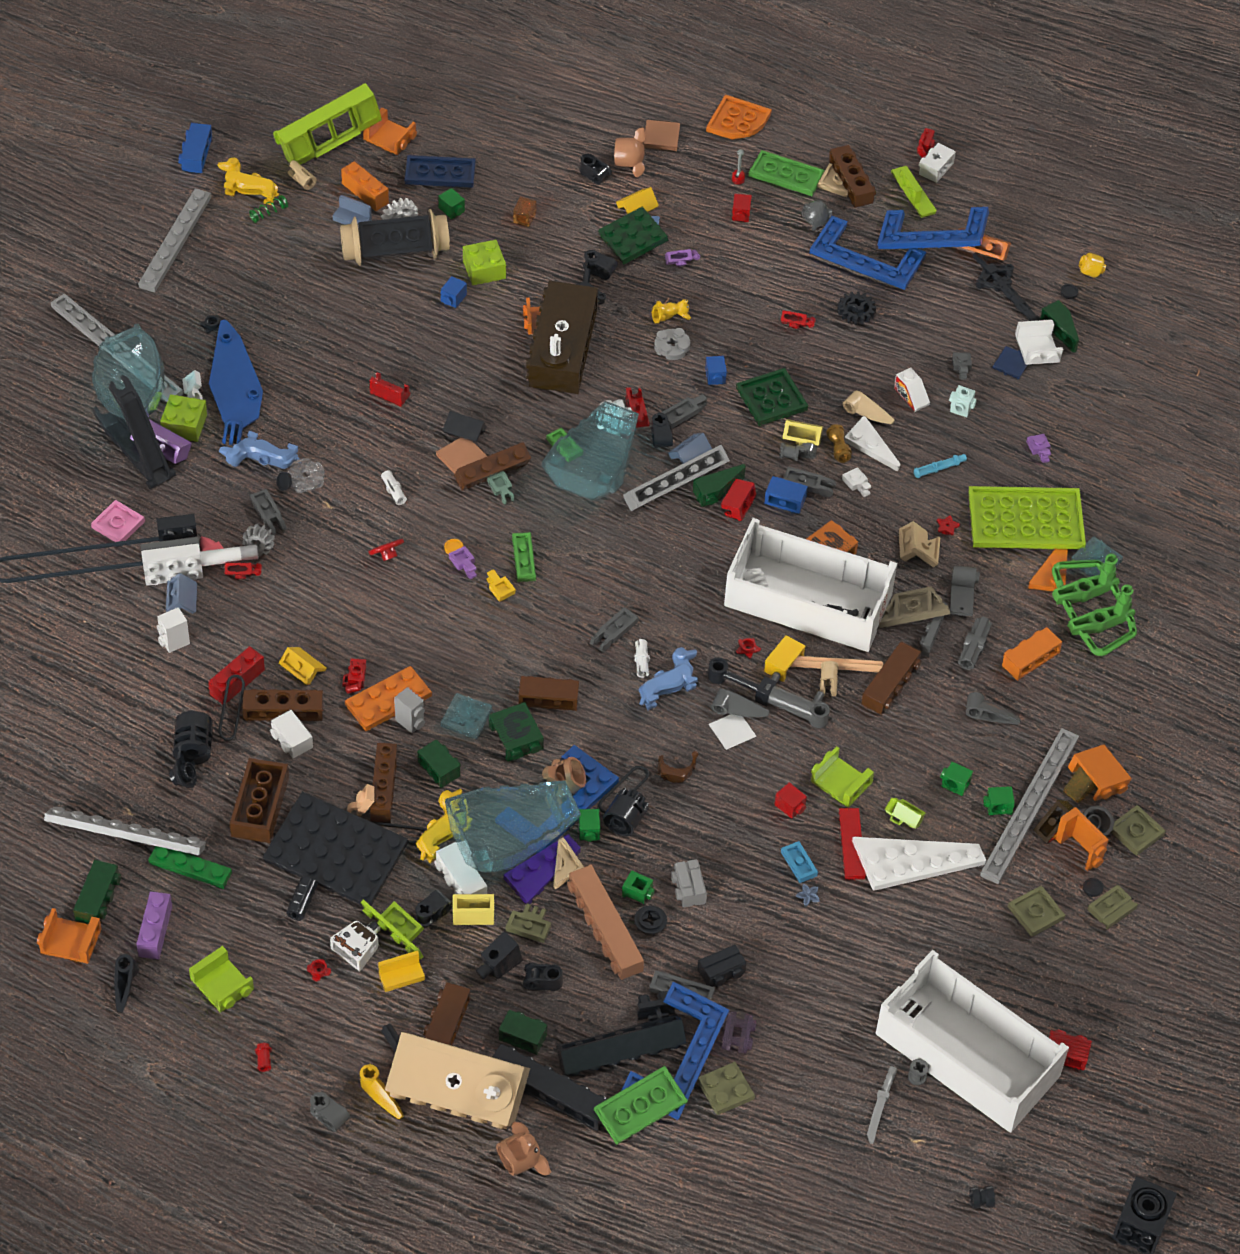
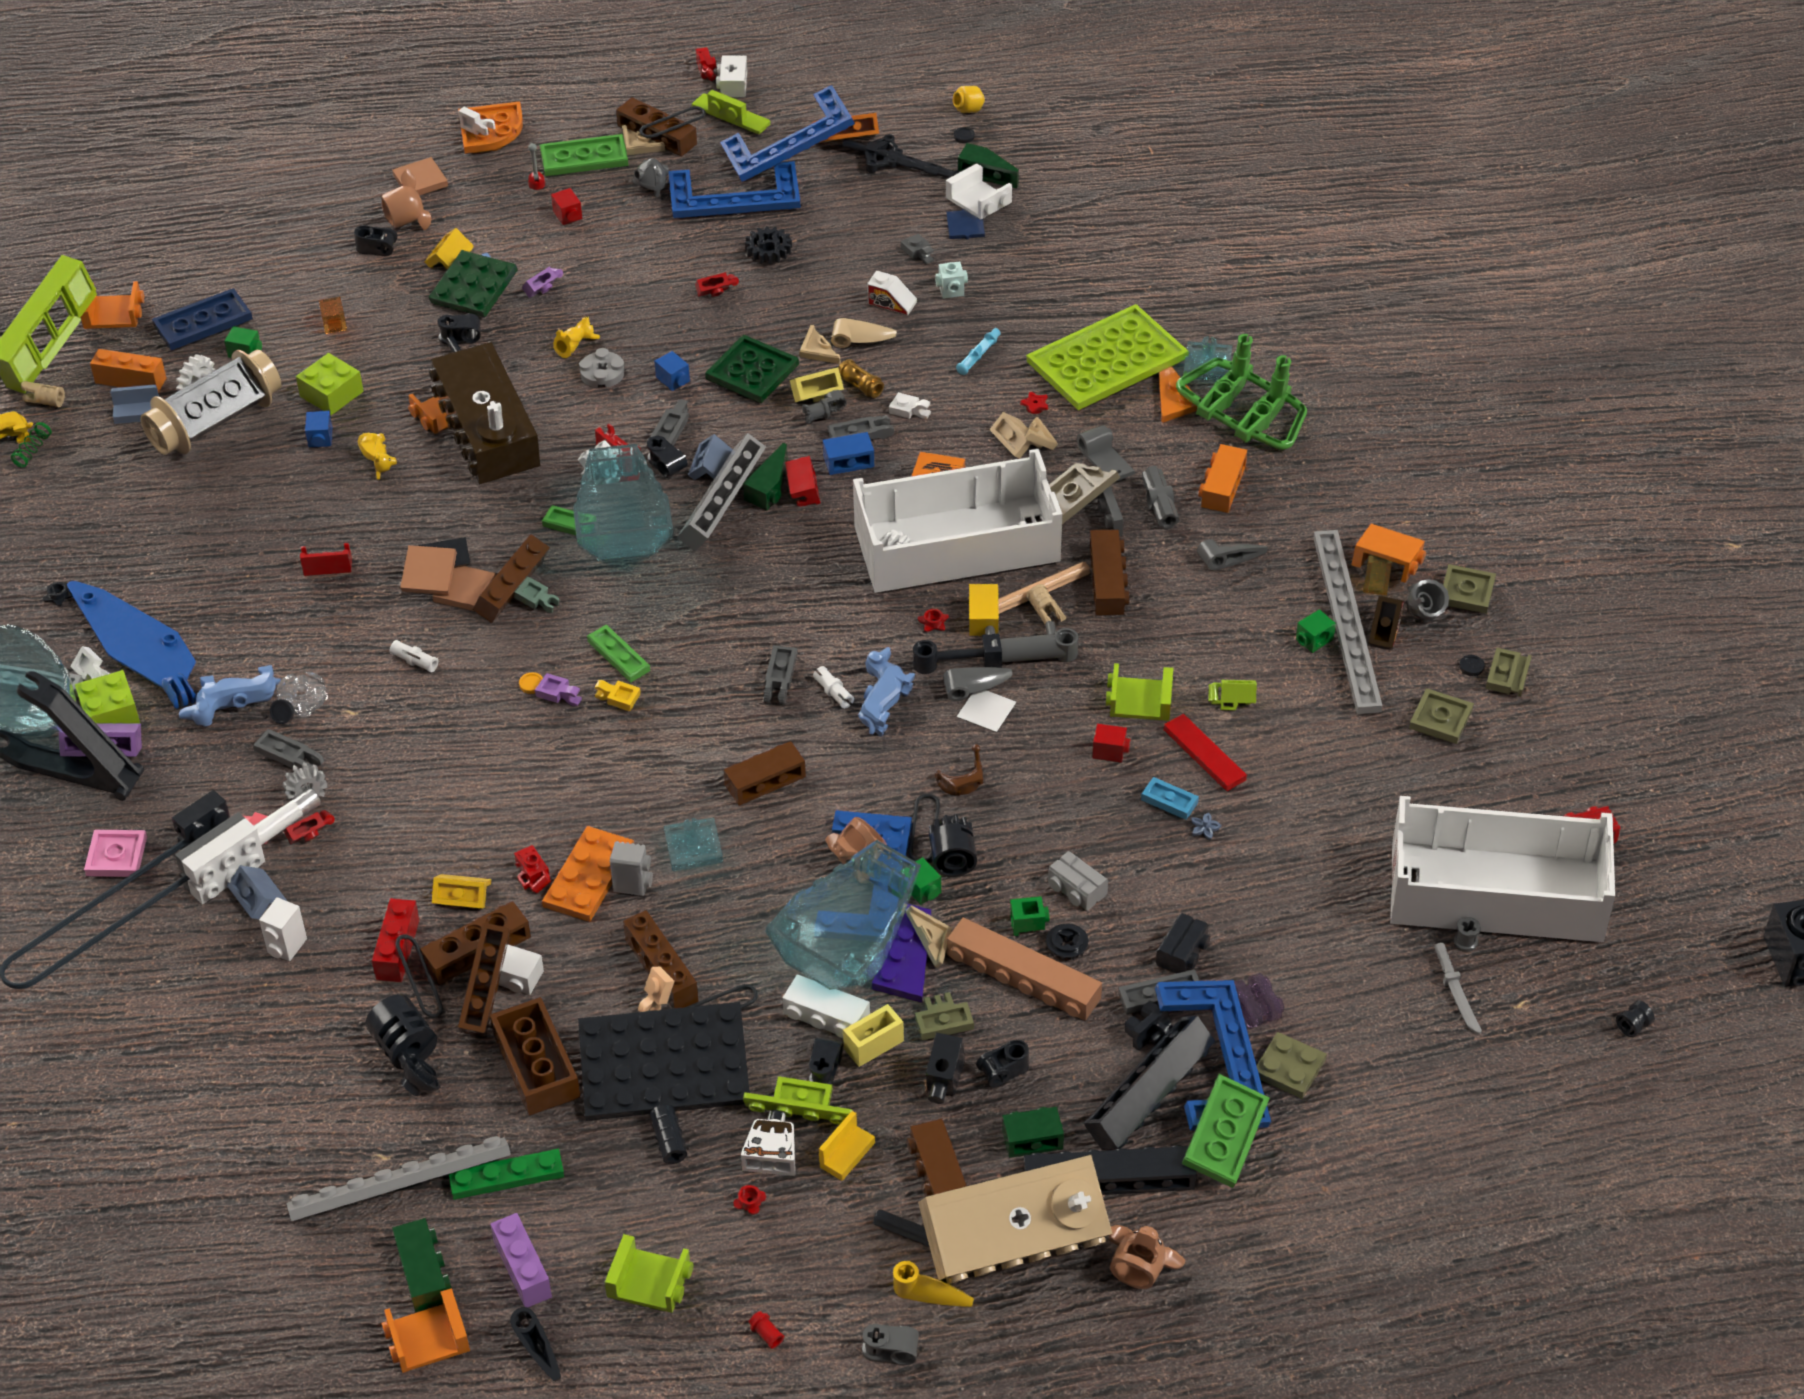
camera: 30 degrees left, 5 degrees down
(262, 732) = (484, 980): none -> reddish brown brick
(387, 550) = (461, 720): red piece -> none
(437, 830) = (767, 970): yellow animal -> none
(439, 763) = (704, 908): dark green brick -> none
(444, 432) = (428, 570): none -> nougat tile
(477, 324) = (374, 450): none -> yellow animal
(517, 731) = (764, 827): dark green panel -> none
(724, 111) = (473, 123): none -> white plate
(830, 403) = (818, 348): none -> tan tile
(860, 173) = (674, 127): none -> black piece
(868, 441) = (889, 364): white wing -> none
(904, 861) = (1276, 738): white wing -> none
(956, 778) = (1255, 633): green brick -> none
(1039, 445) = (1059, 285): medium lavender plate -> none
(1076, 825) = (1432, 617): orange panel -> none

